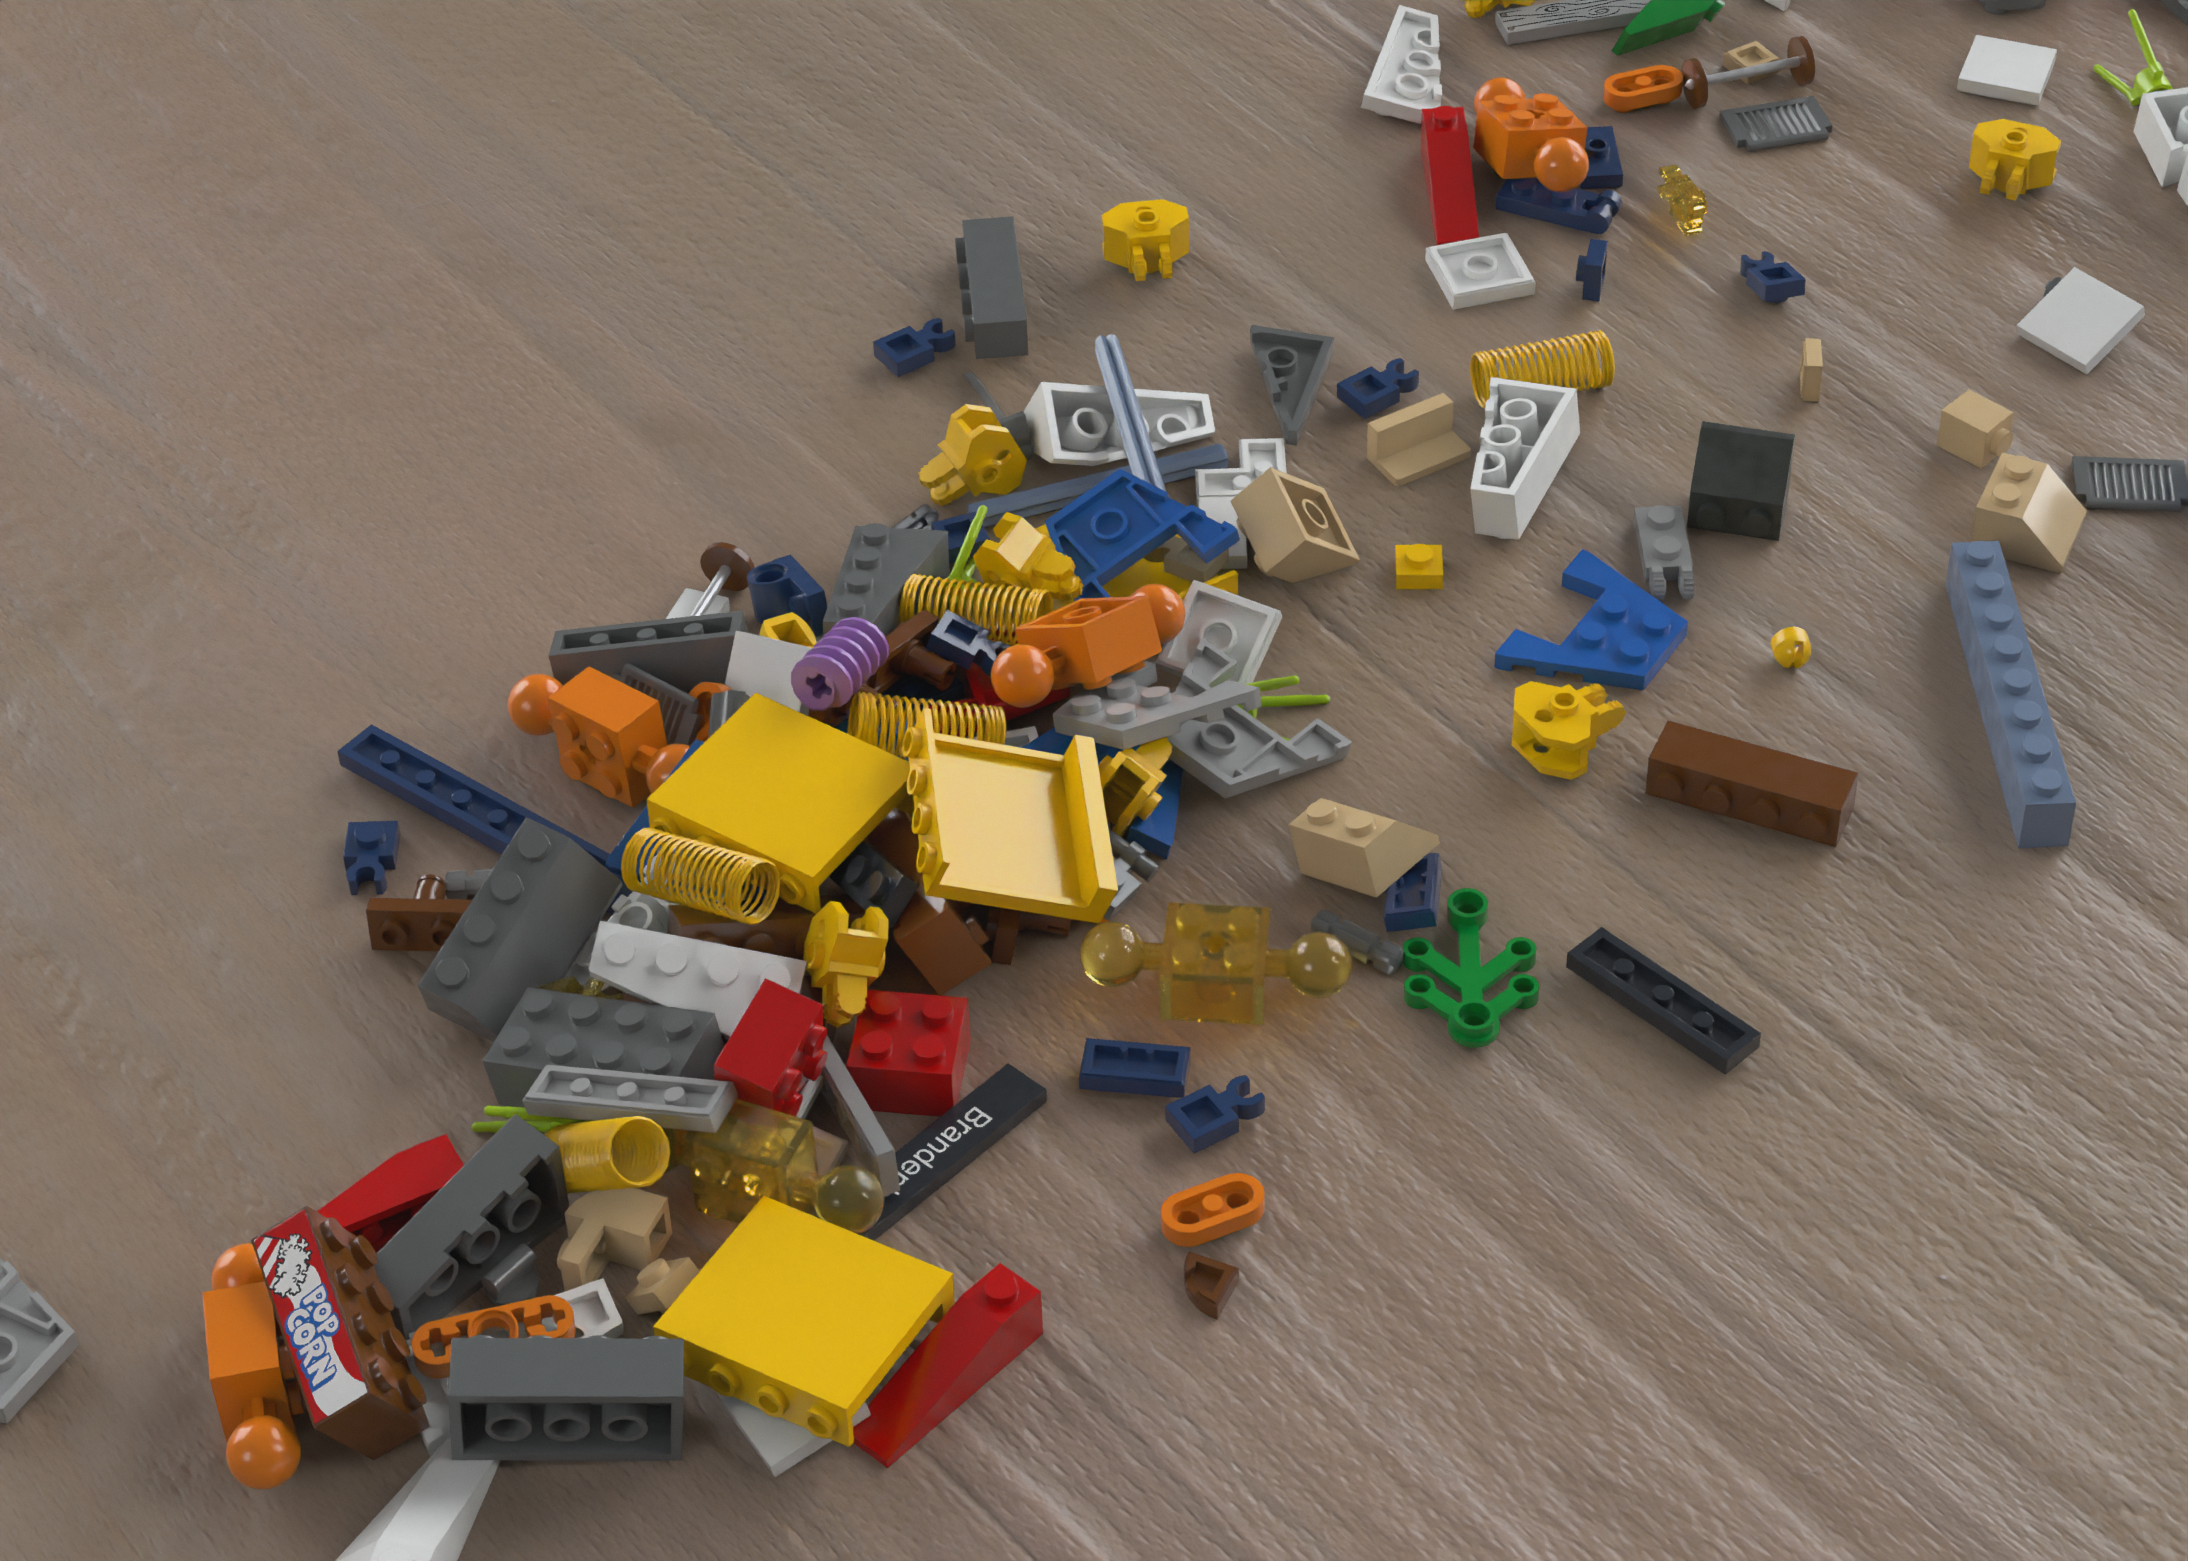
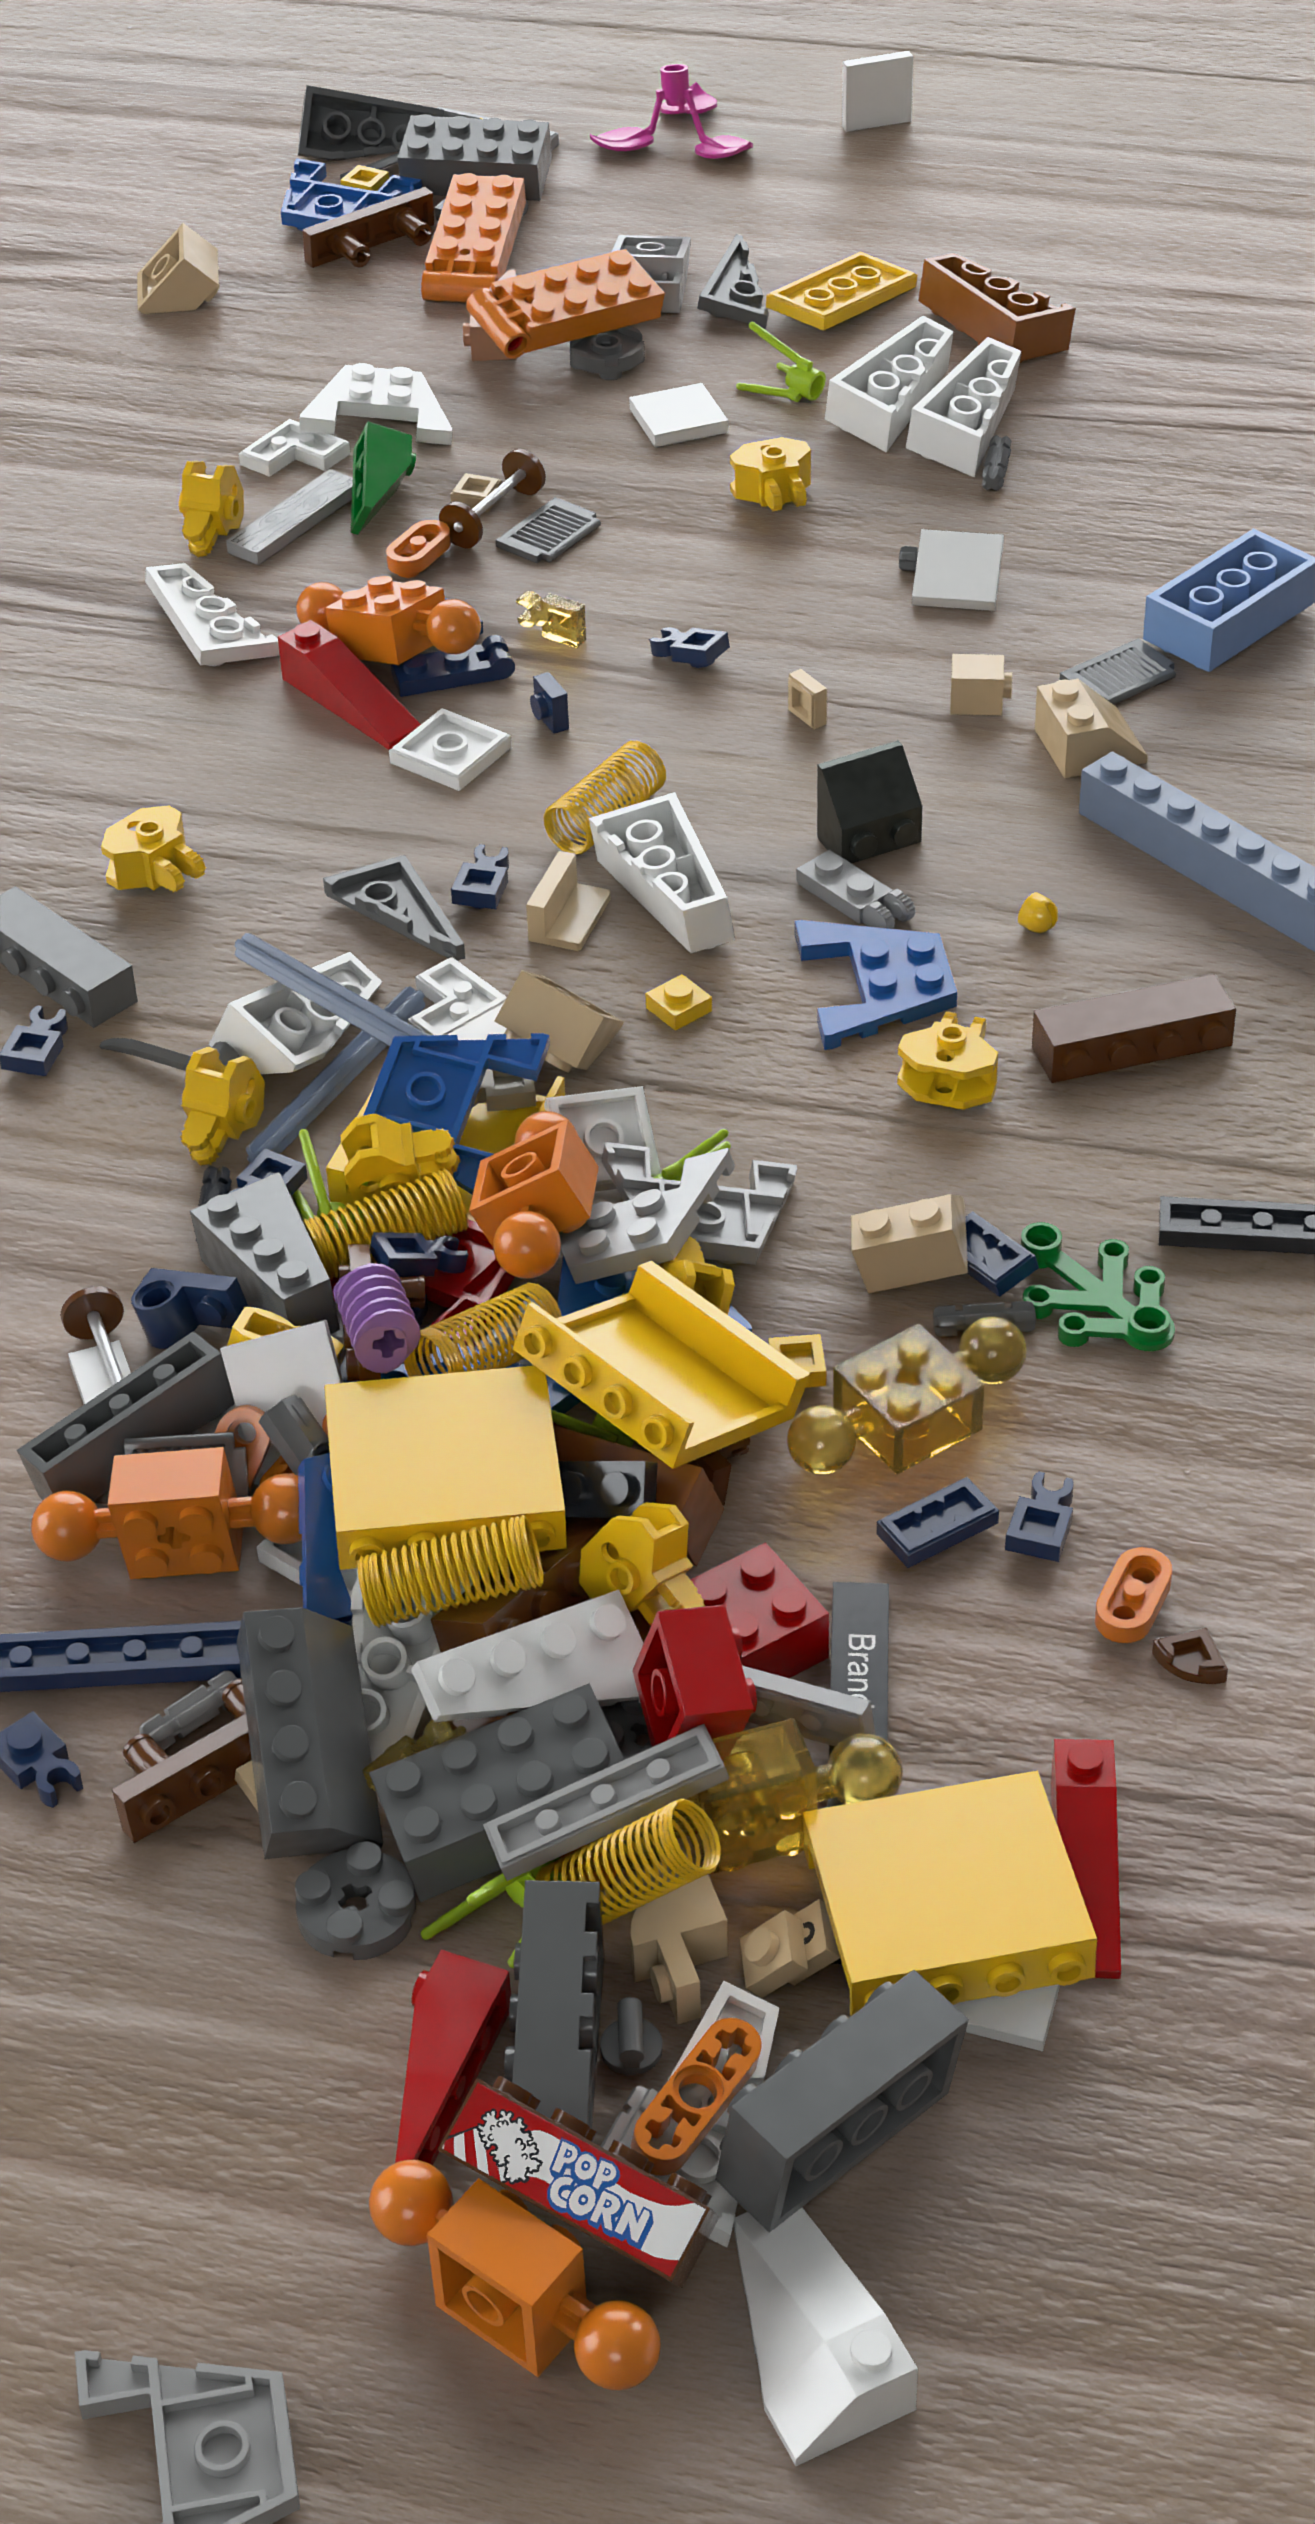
camera: 40 degrees left, 0 degrees up
(435, 1058) = (350, 1874): none -> dark grey plate
(1172, 884) = (806, 1353): none -> yellow plate

